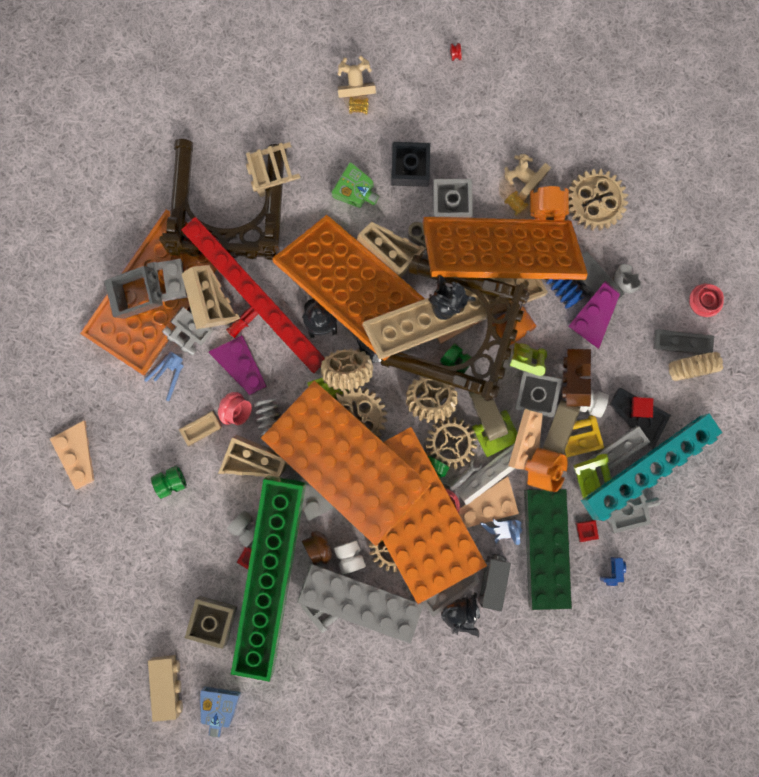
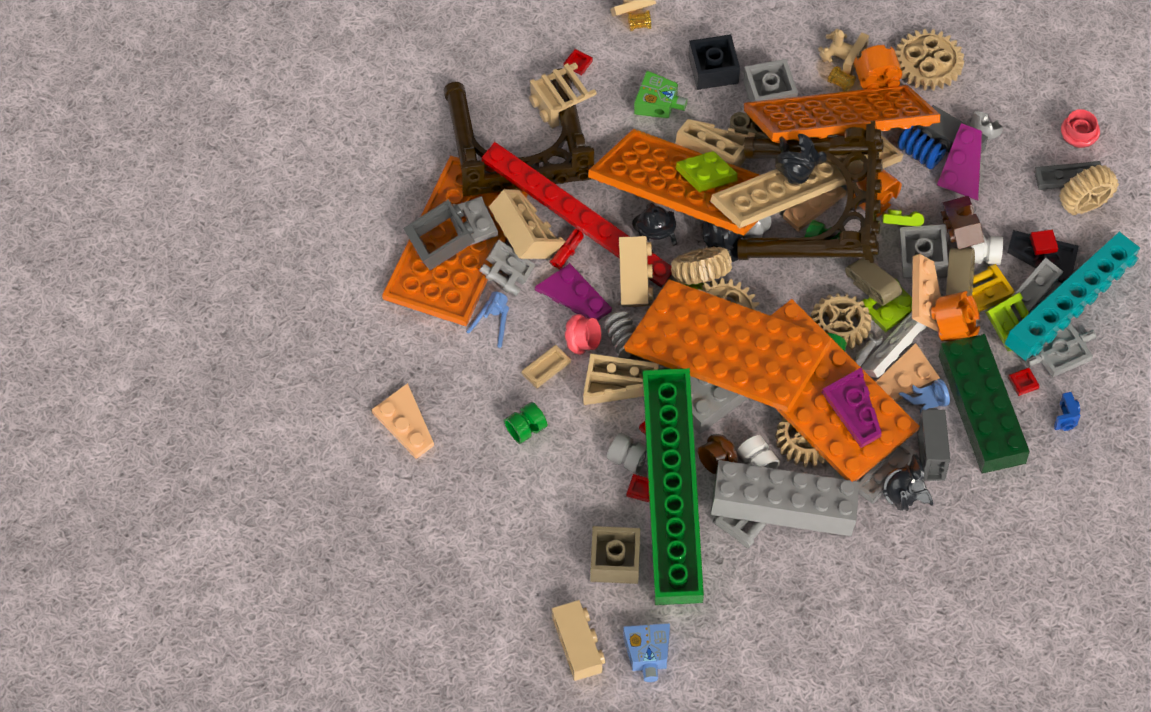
camera: 15 degrees left, 25 degrees down
(290, 362) = (635, 271): none -> tan brick
(297, 135) = (581, 59): none -> red tile
(372, 282) = (706, 171): none -> lime plate
(428, 405) = (805, 278): tan gear -> none
(435, 544) = (853, 406): none -> magenta wing

